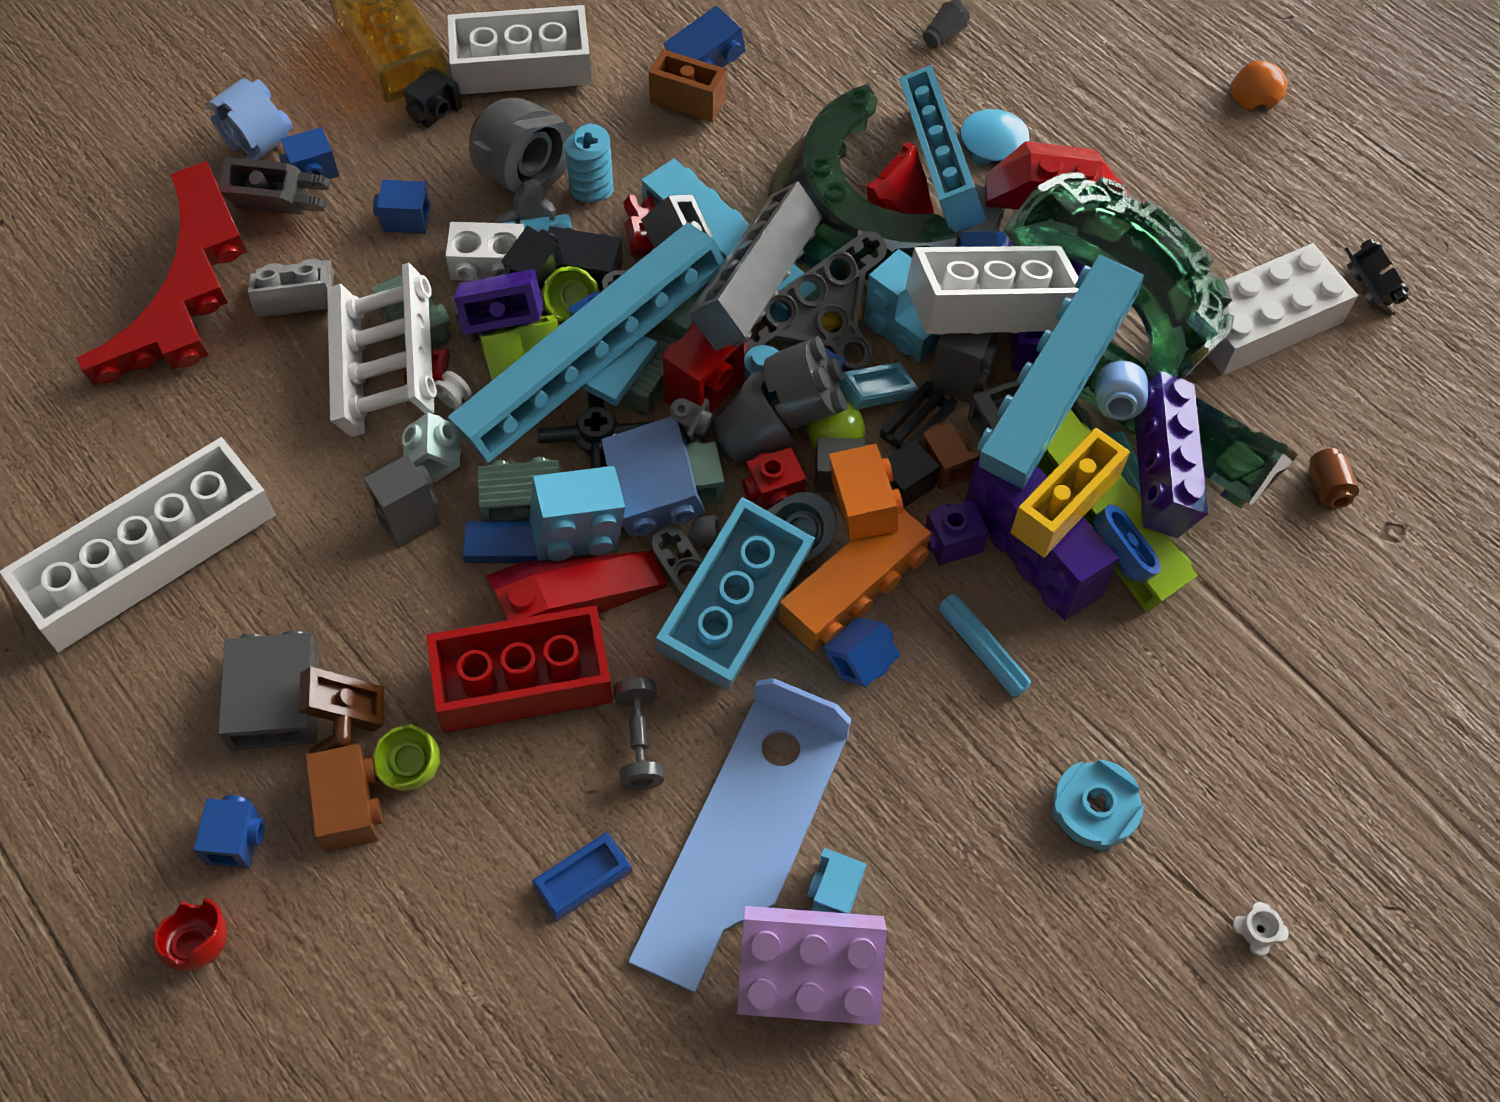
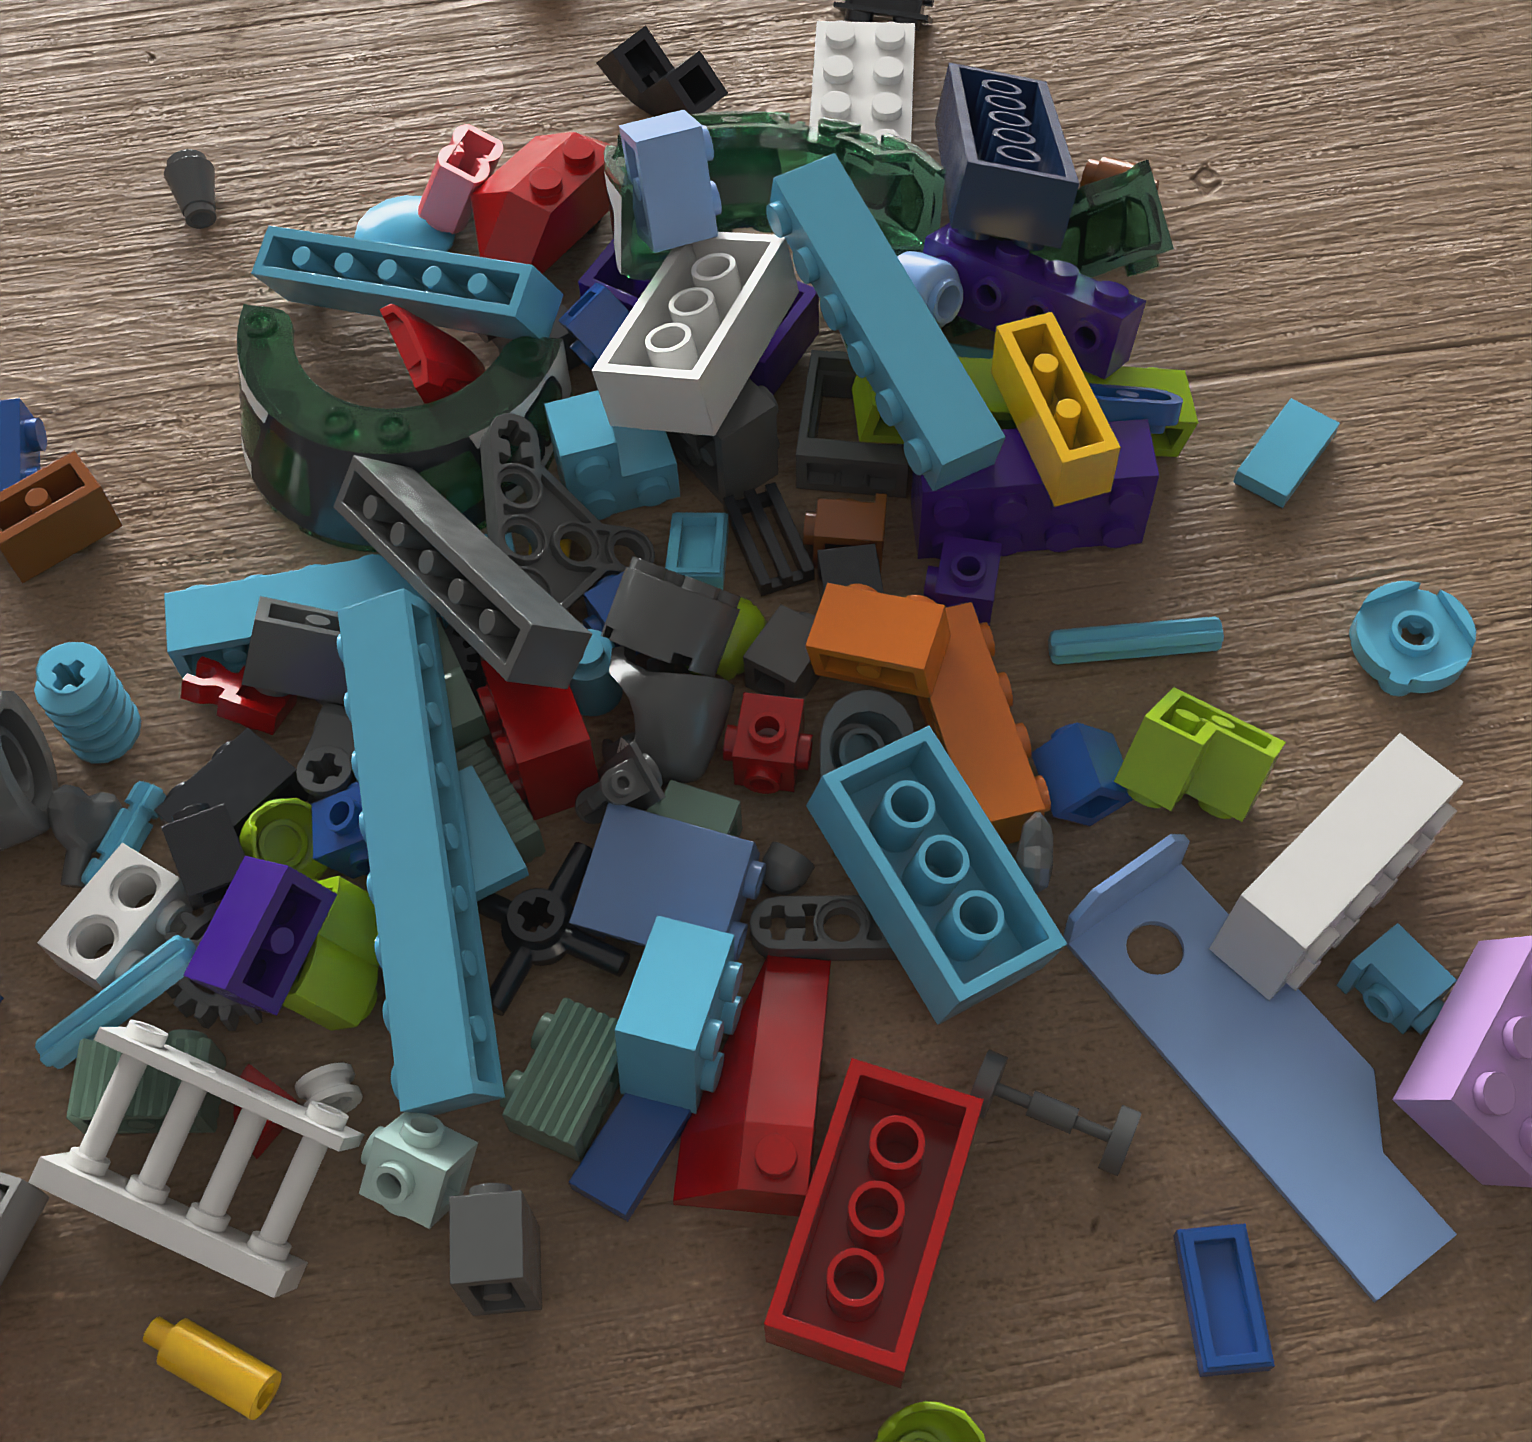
camera: 55 degrees left, 0 degrees up
(291, 422) = (214, 1365): none -> yellow cylinder
(443, 273) = (117, 1001): none -> medium azure axle
(783, 646) = (1036, 852): none -> dark grey rock
(882, 811) = (1337, 869): none -> white brick
(915, 700) = (1200, 753): none -> lime brick
(1043, 126) = (457, 174): none -> coral brick
(1070, 211) = (671, 180): none -> light blue brick
(1194, 672) = (1286, 452): none -> medium azure tile
(1207, 192) = (656, 86): none -> black brick
(1267, 383) = (1004, 158): none -> dark blue brick

